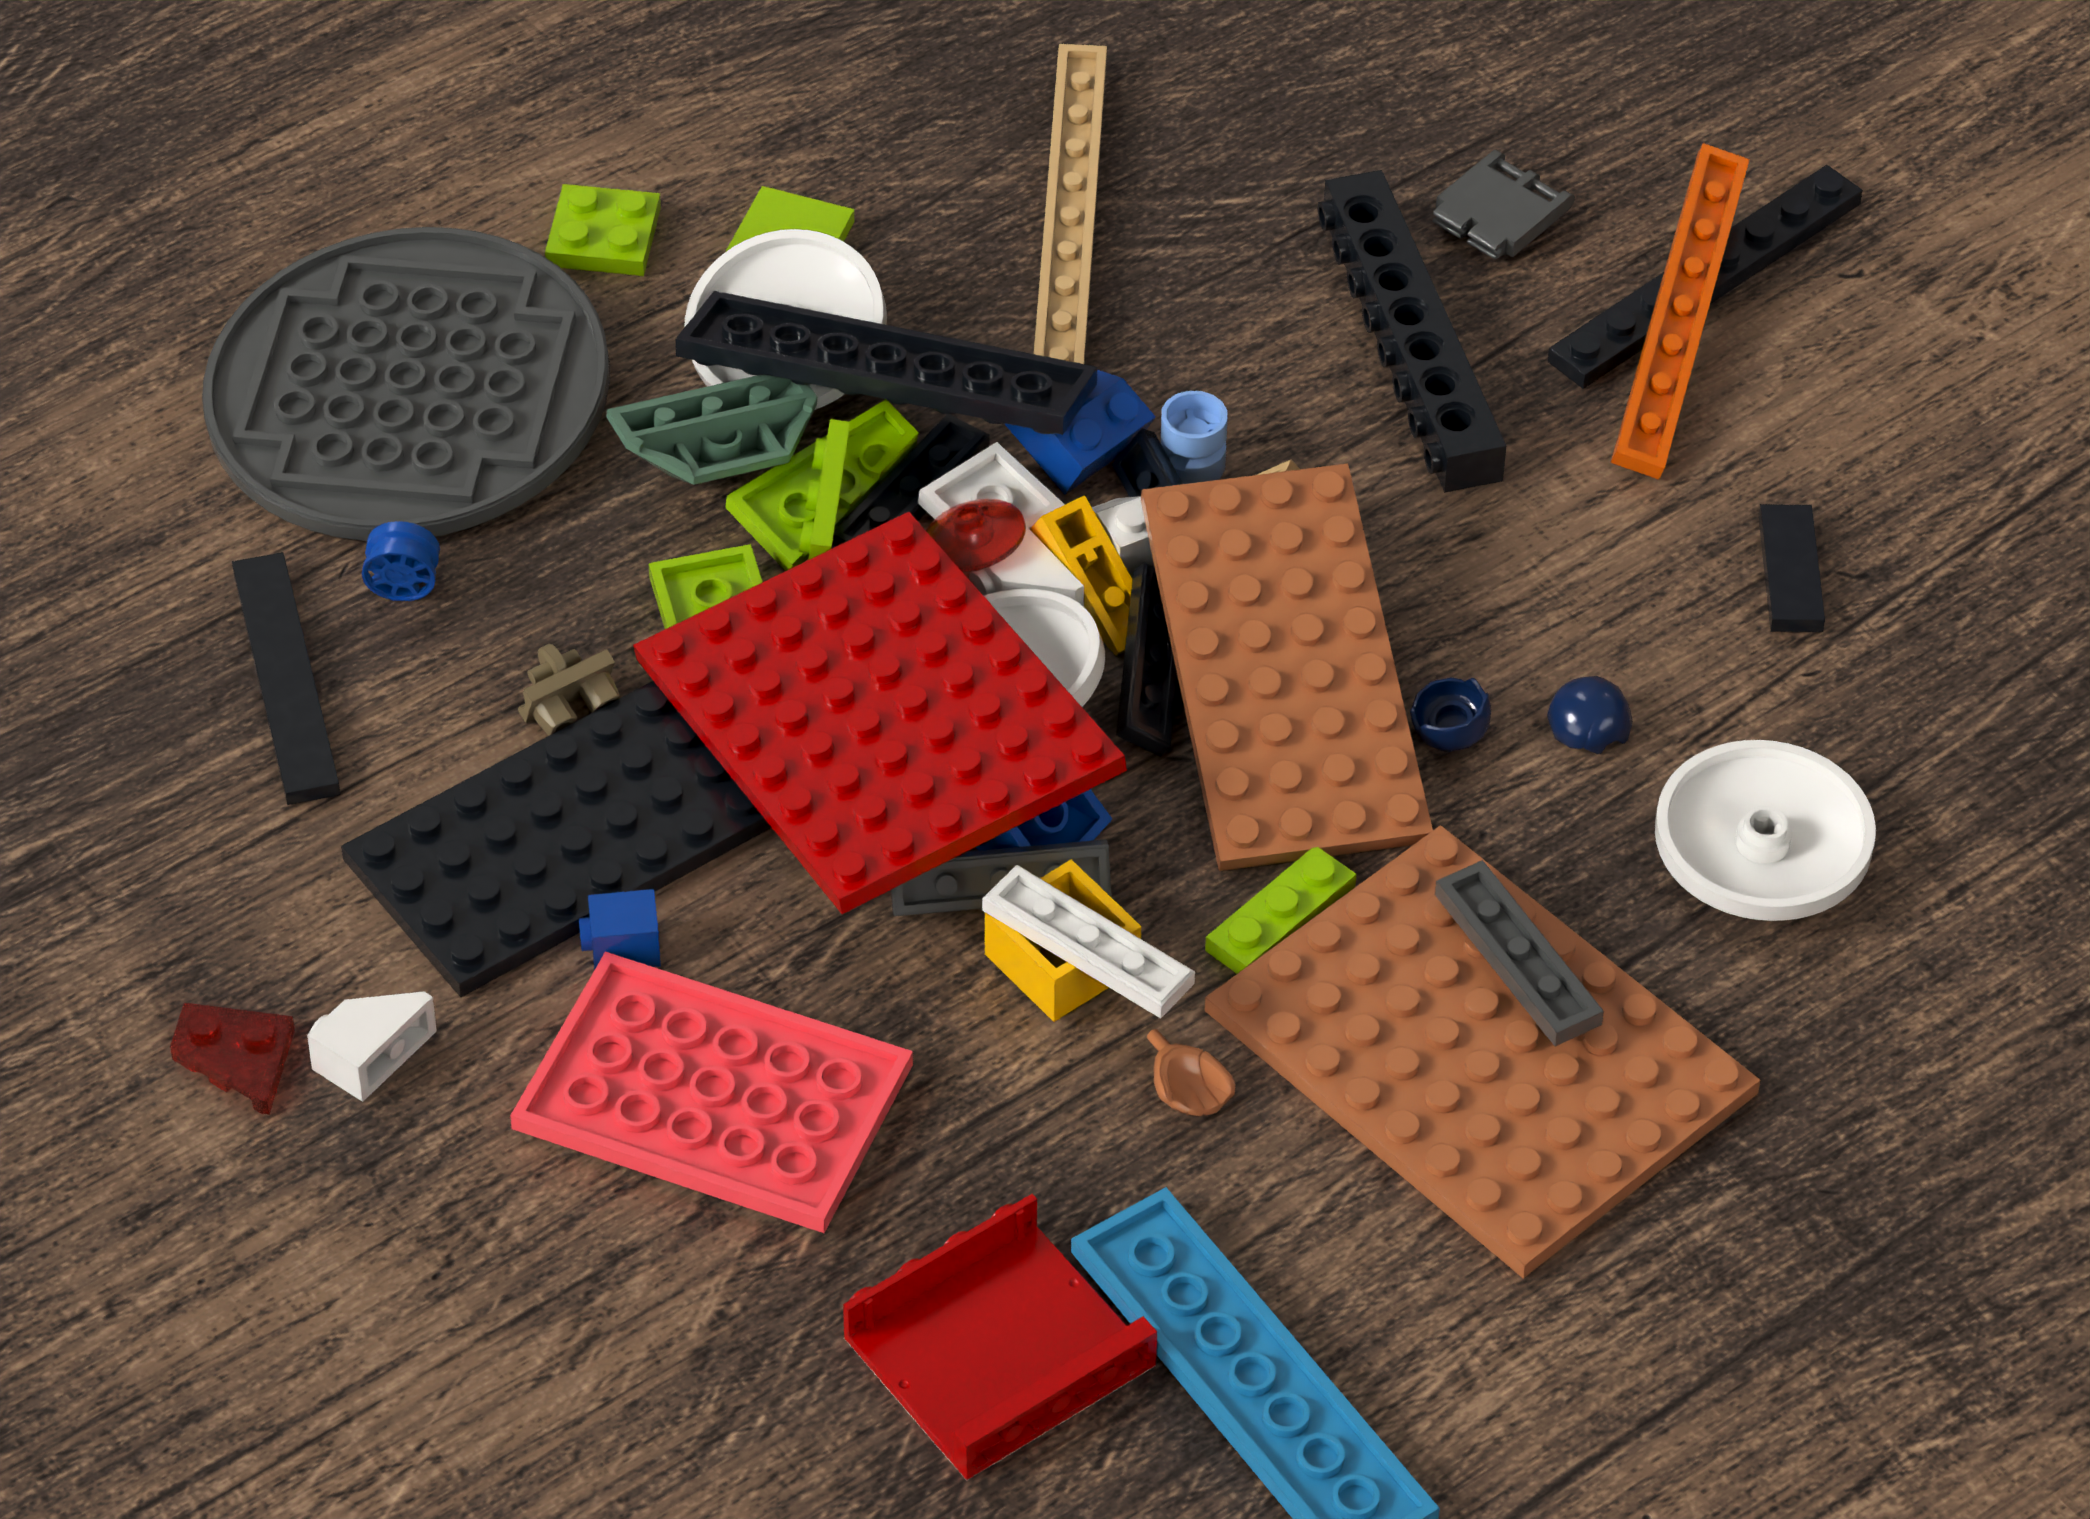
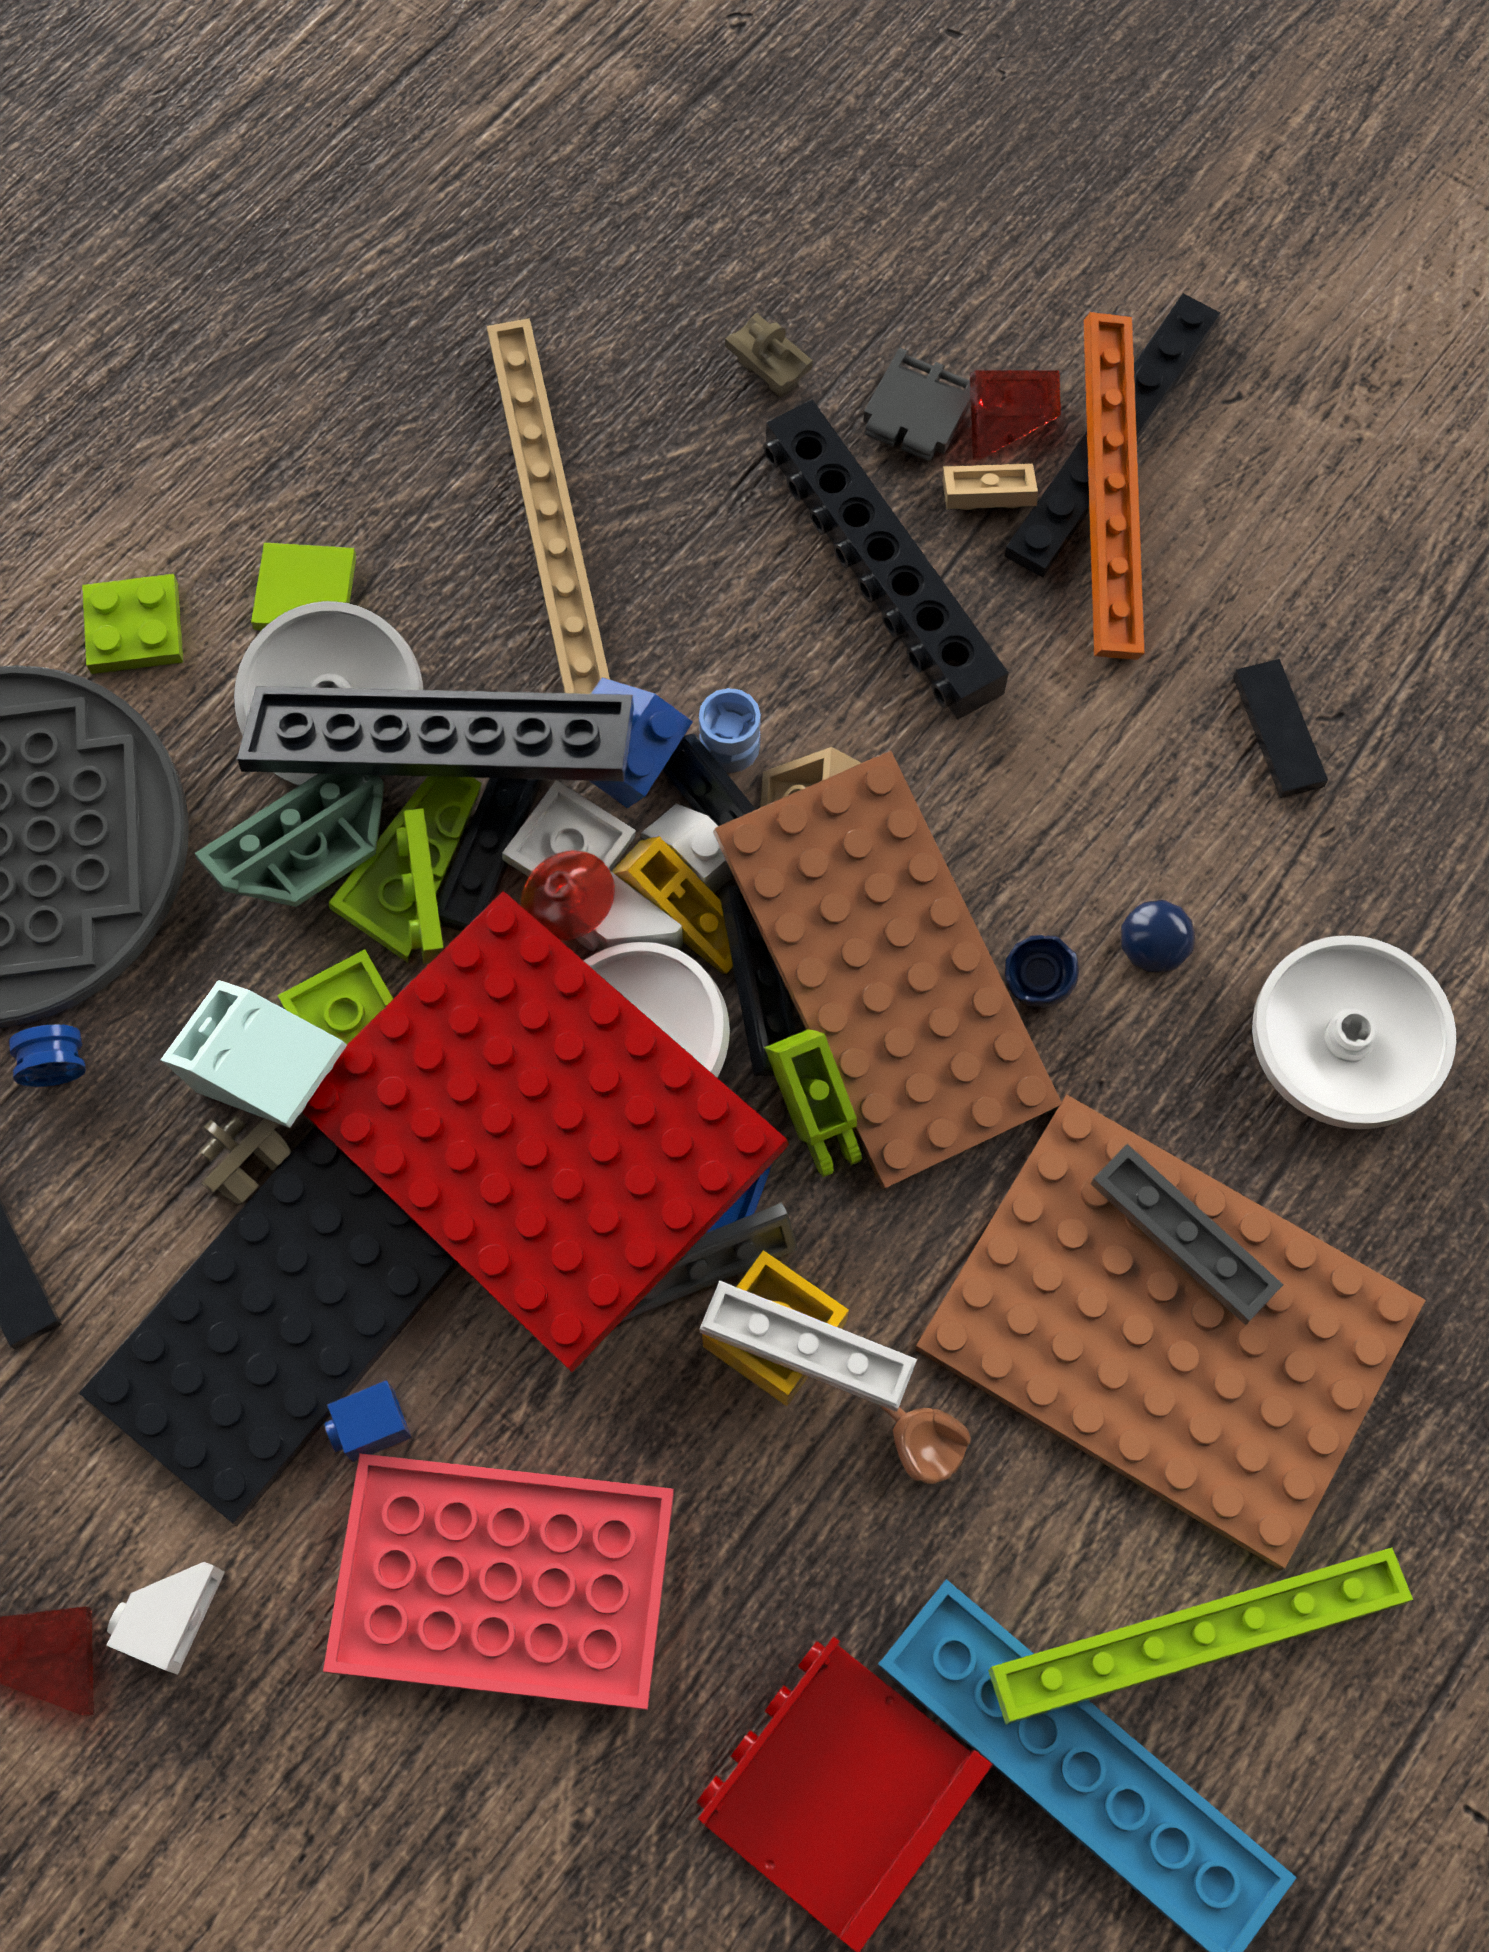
camera: 15 degrees left, 20 degrees up
(606, 594) = (252, 1054): none -> light aqua slope
(1171, 756) = (815, 1096): none -> lime hinge
(1280, 909) = (952, 1225): lime plate -> none
(1353, 128) = (769, 354): none -> dark tan hips
(1413, 1287) = (1198, 1635): none -> lime plate
(1549, 290) = (989, 486): none -> tan plate
(1599, 225) = (1010, 406): none -> clear red wing

